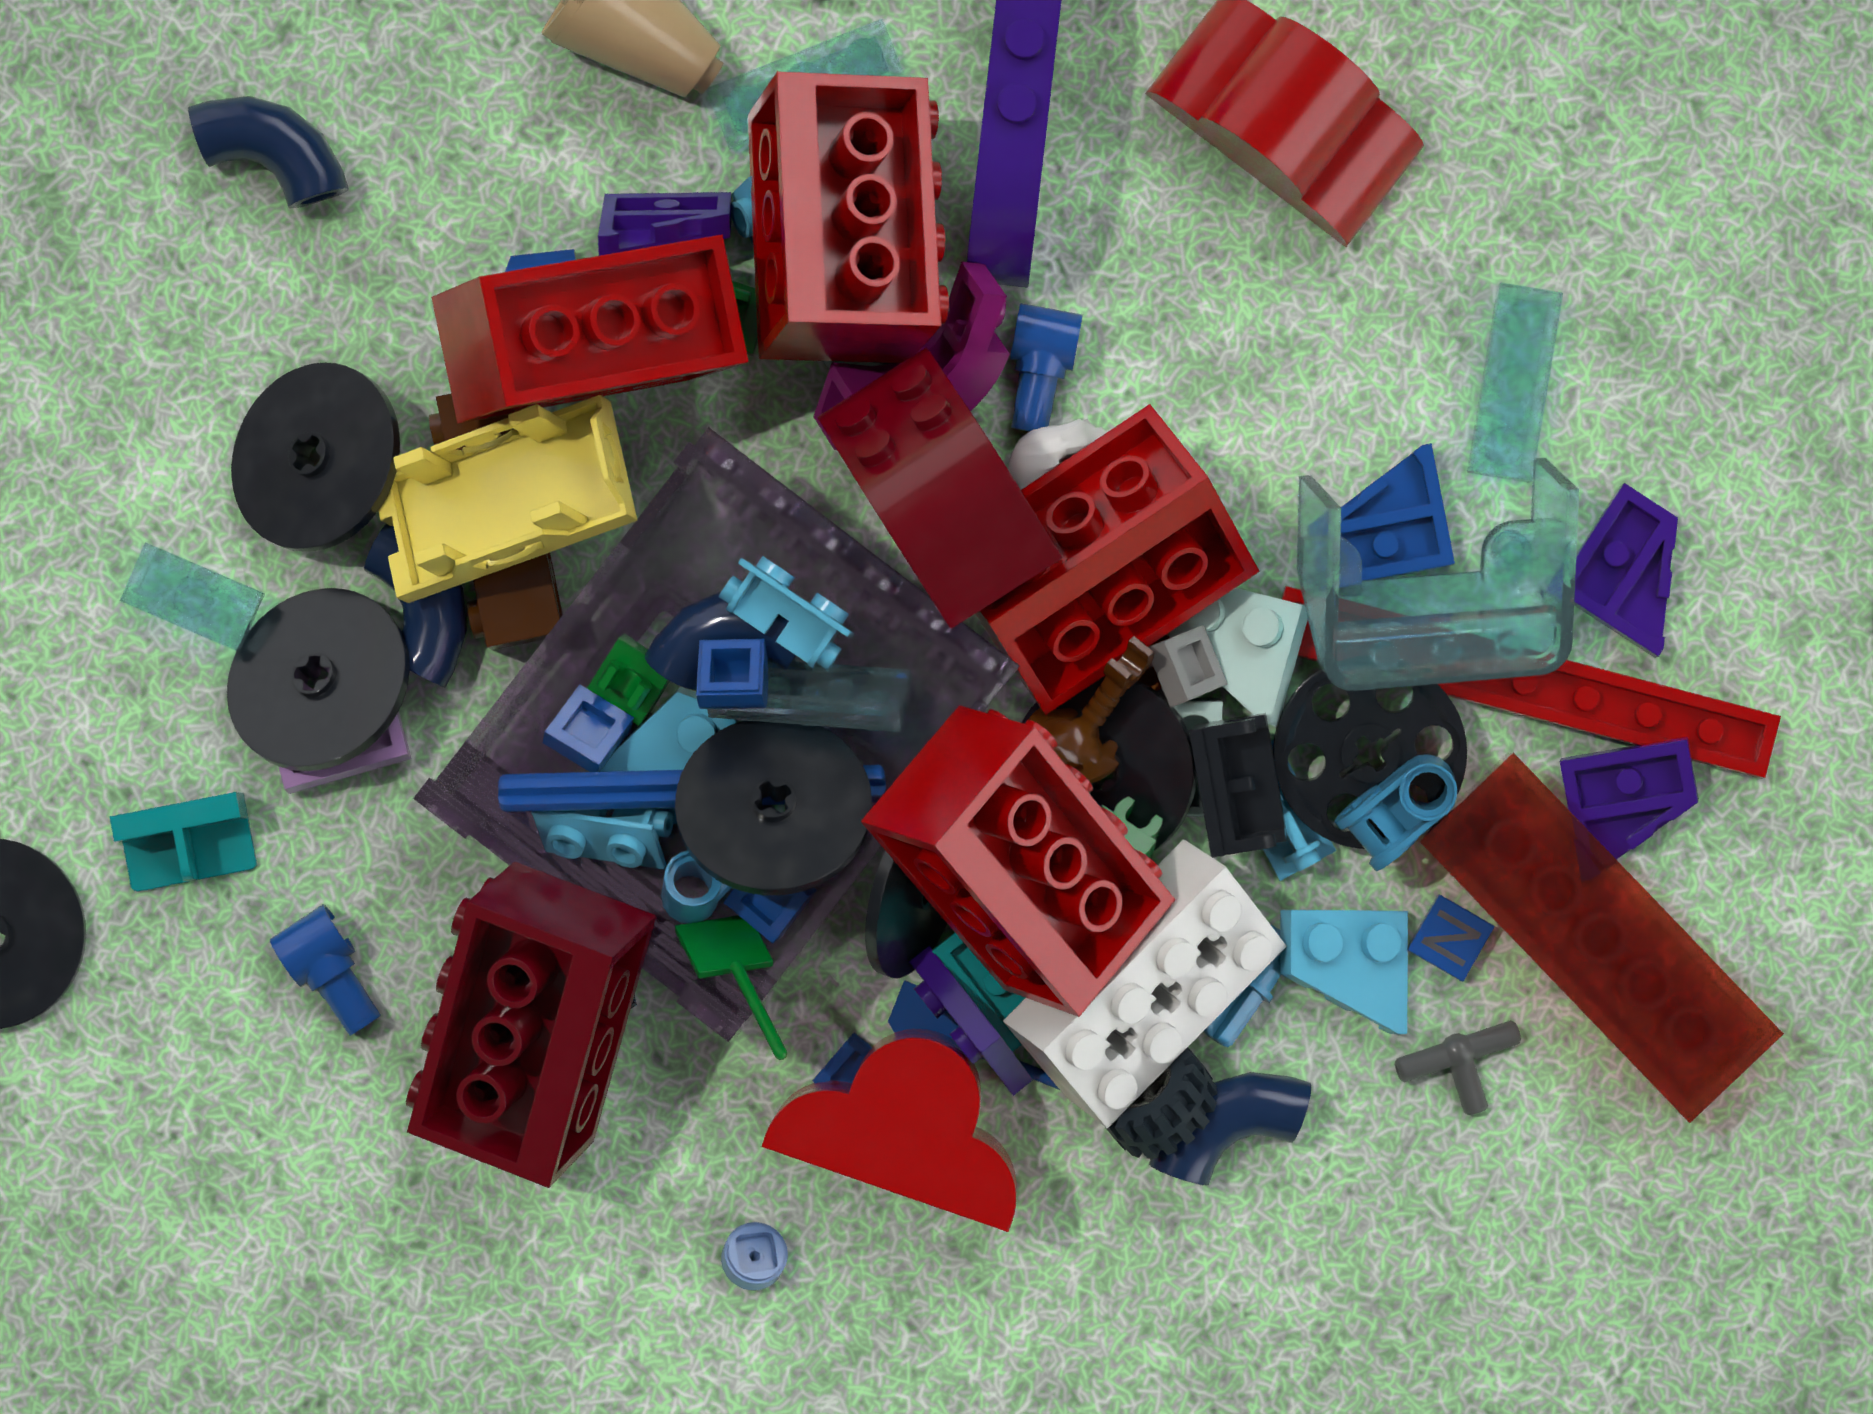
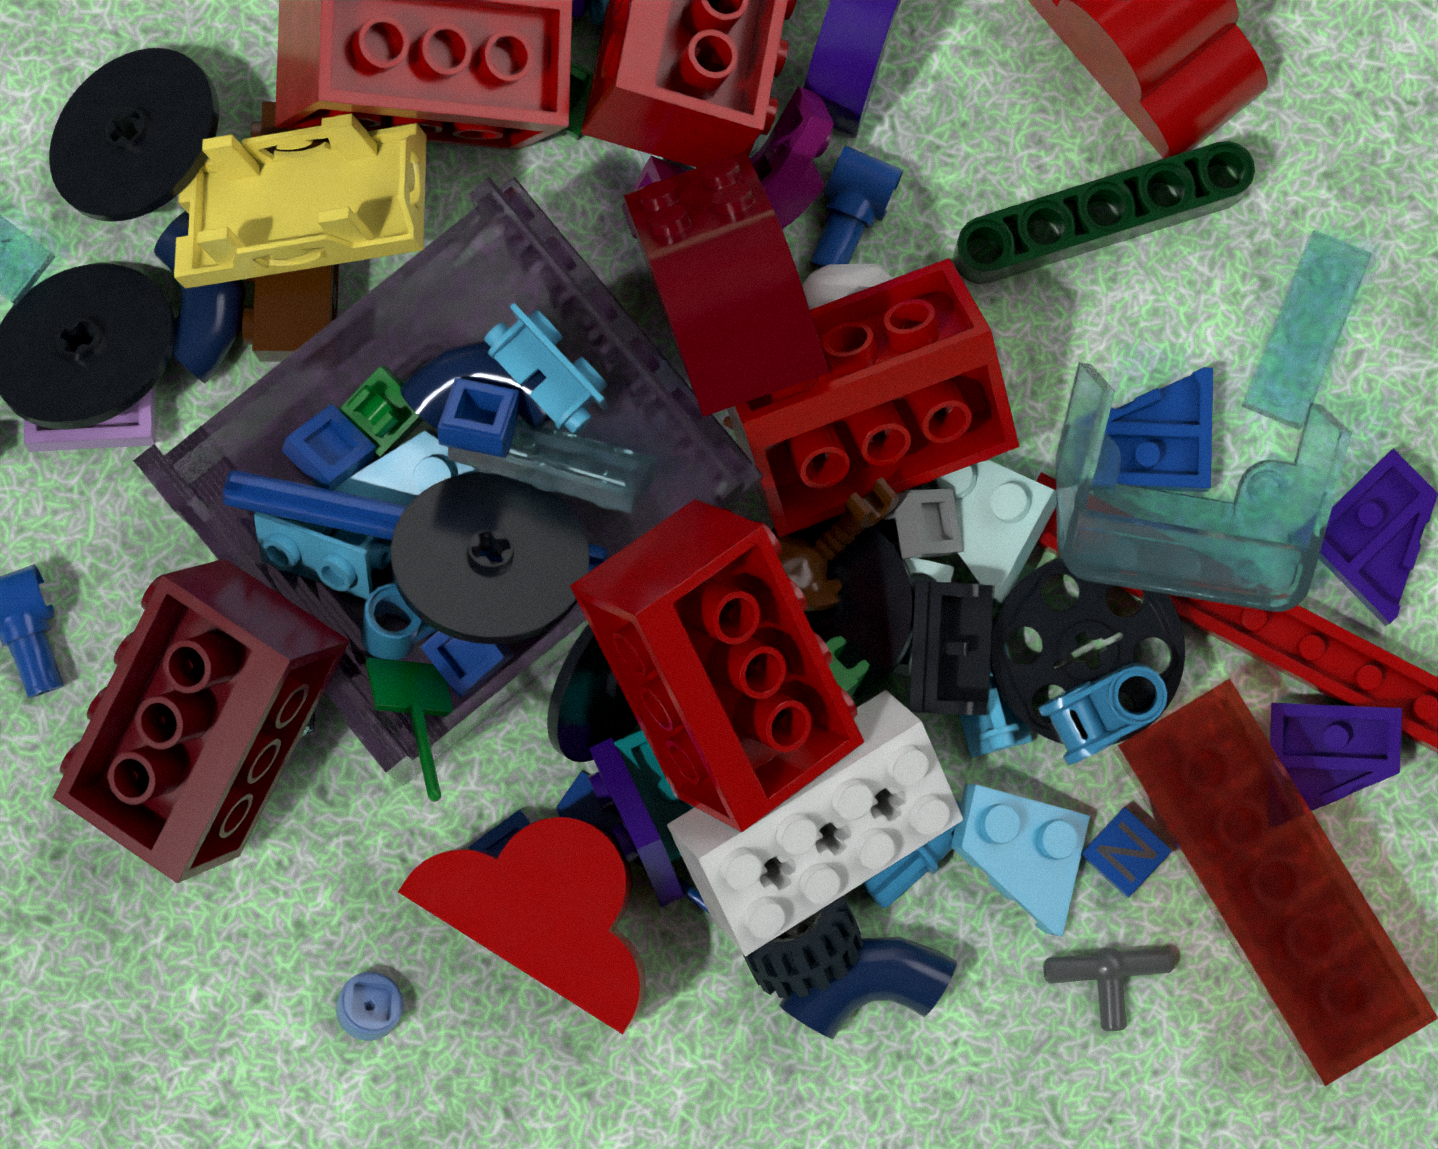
camera: 10 degrees right, 5 degrees down
(1311, 290) = (1123, 191): none -> dark green beam

